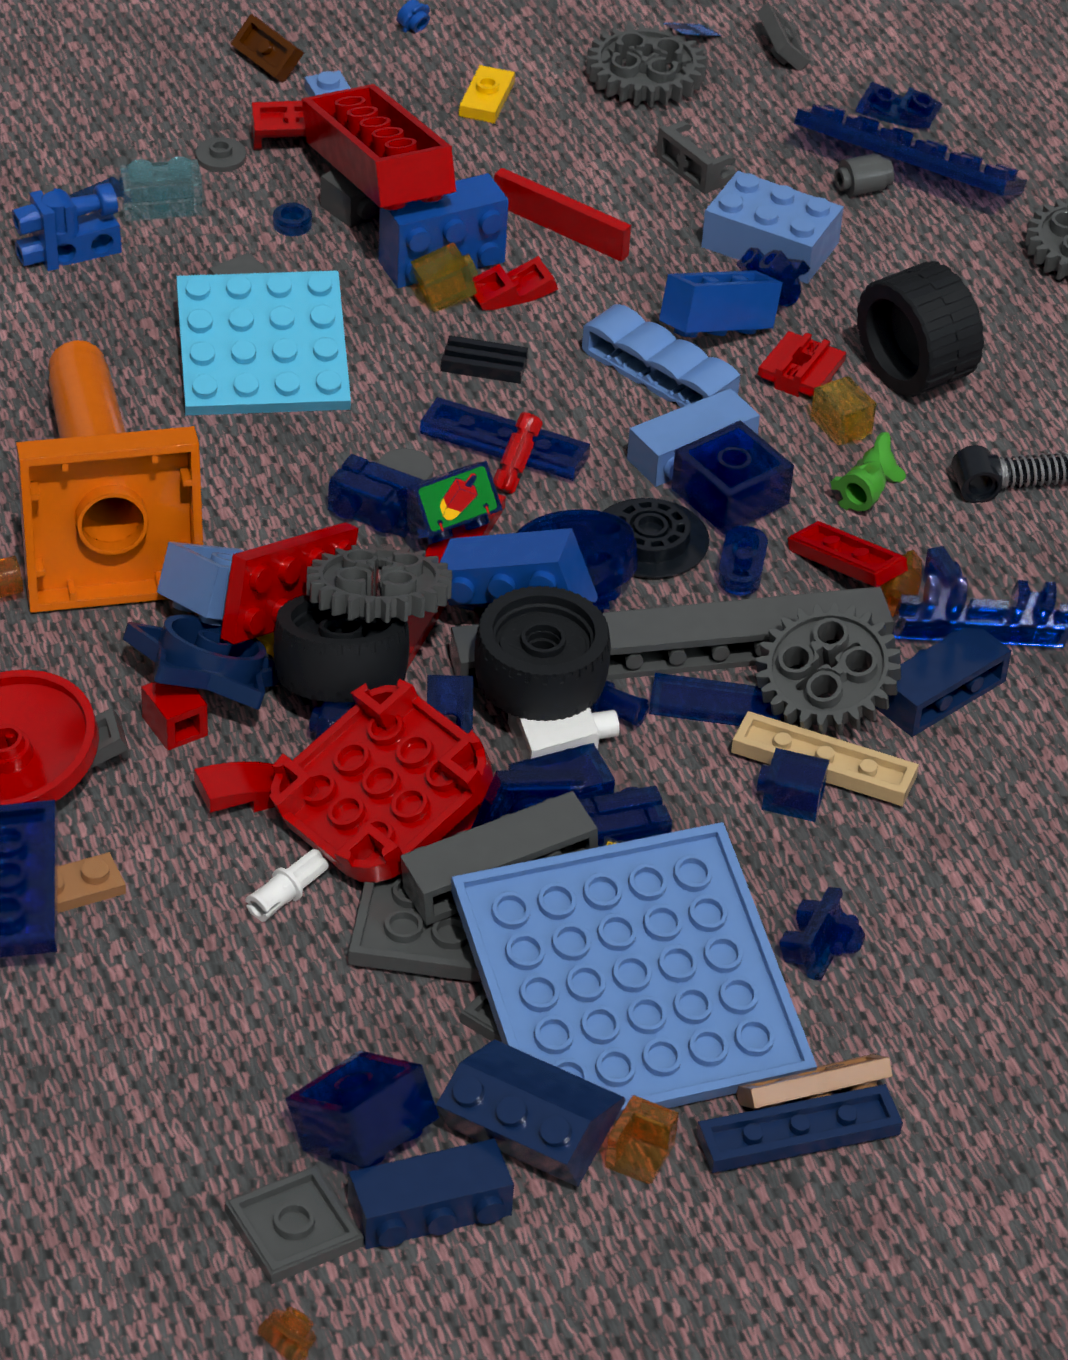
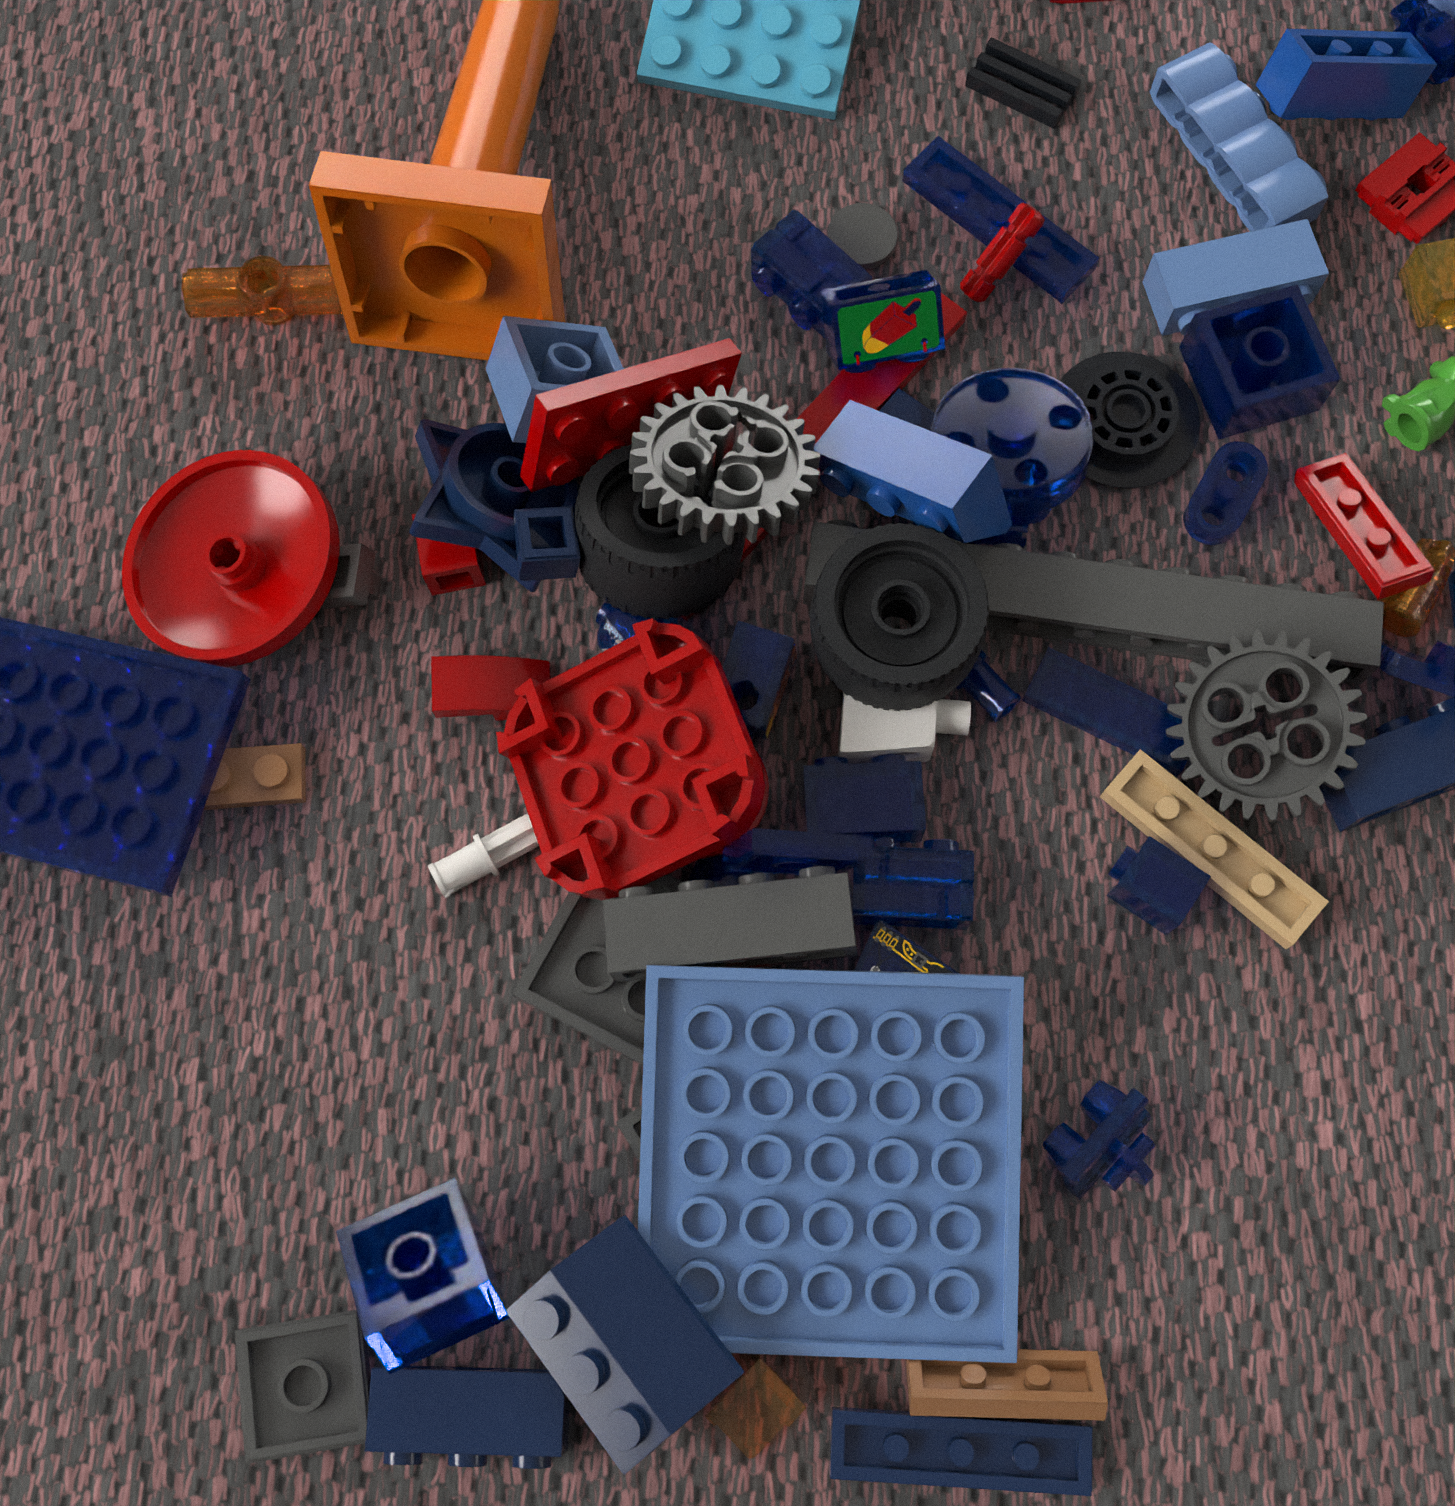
camera: 25 degrees right, 30 degrees up
(264, 665) = (546, 543): none -> dark blue slope

